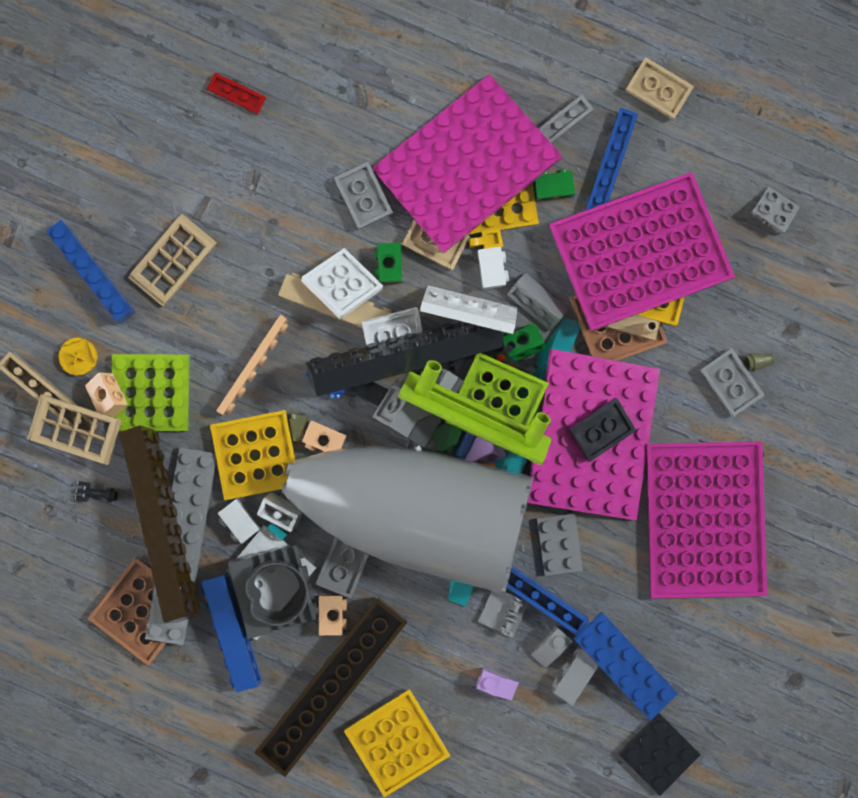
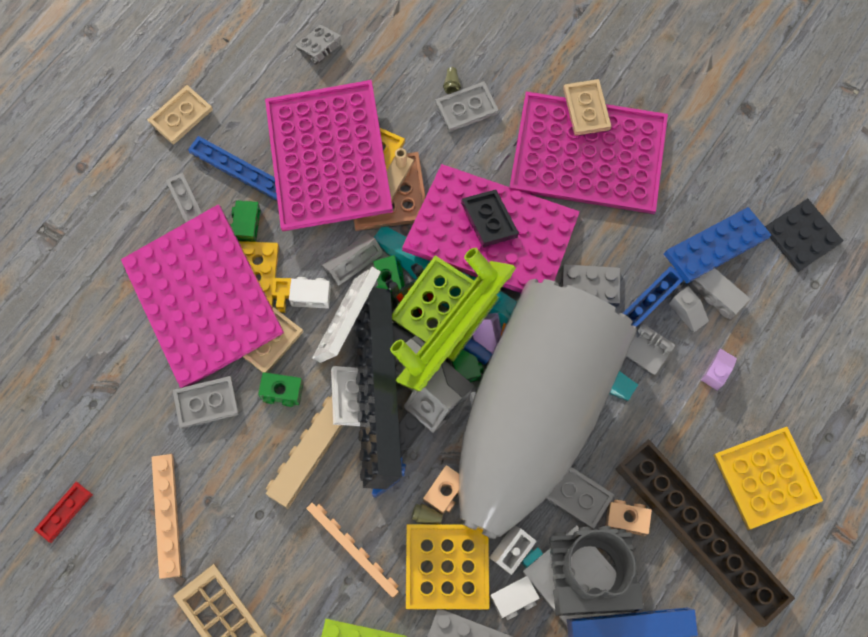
camera: 75 degrees left, 15 degrees down
(251, 187) = (166, 516): none -> light nougat plate
(342, 283) = (289, 438): white plate -> none
(754, 508) = (587, 107): none -> tan plate

